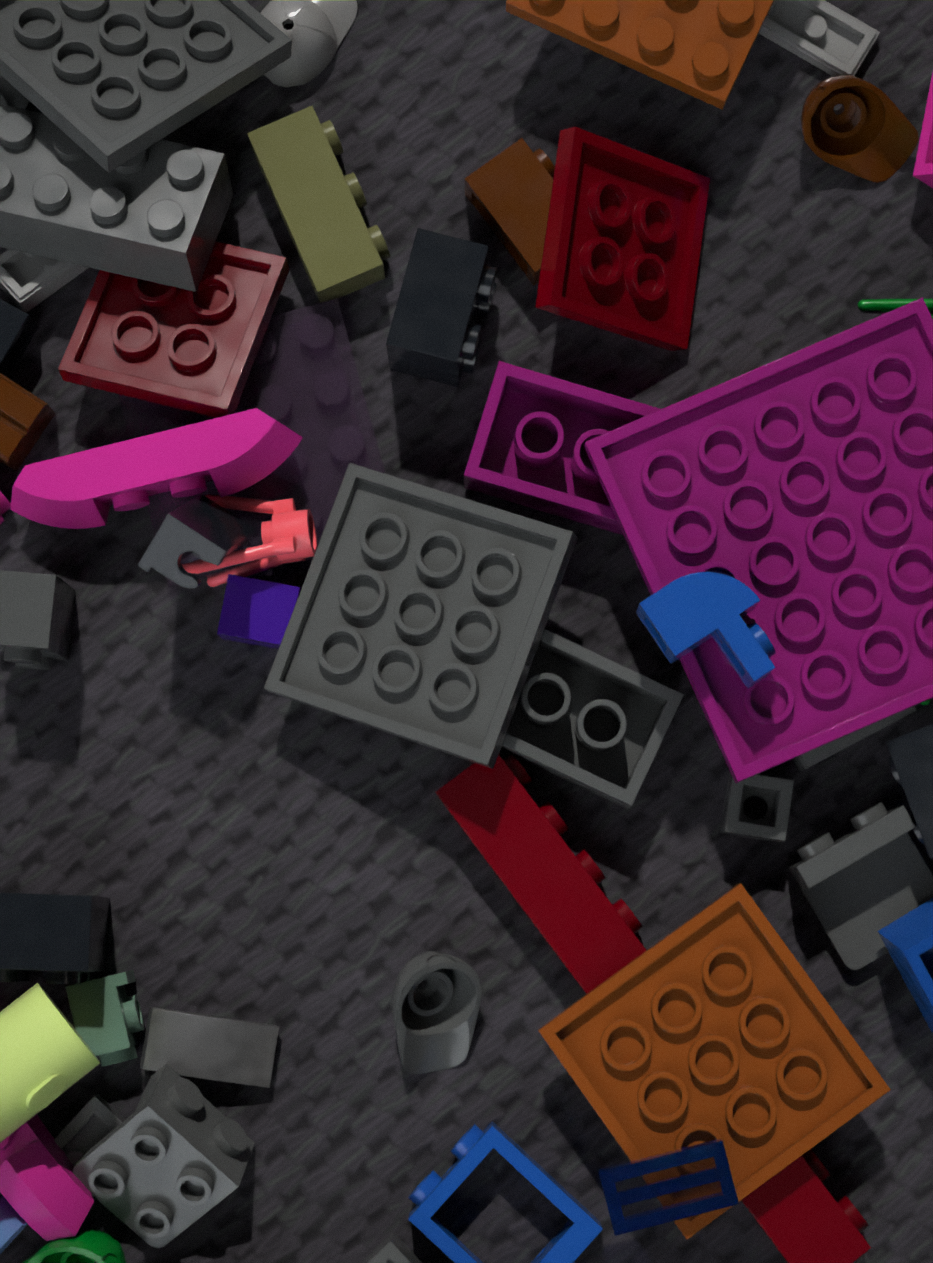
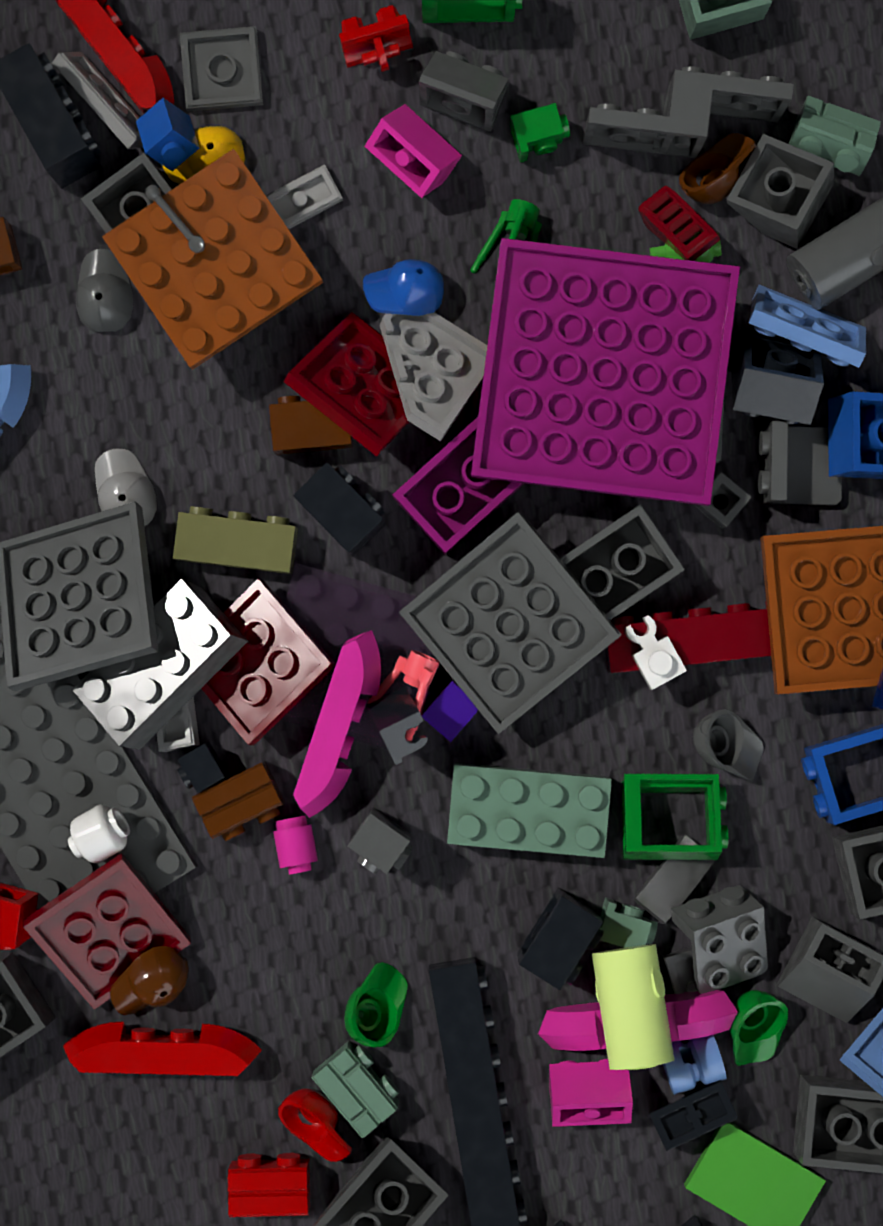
camera: 60 degrees left, 5 degrees up
(187, 791) = (529, 810): none -> sand green brick
(307, 916) = (715, 800): none -> green window
(489, 840) = (656, 659): none -> white plate
(702, 314) = (433, 368): none -> light grey plate
(708, 607) = (607, 465): blue brick -> none
(782, 227) = (405, 289): none -> blue cap
(870, 142) = (384, 211): reddish brown cap -> none

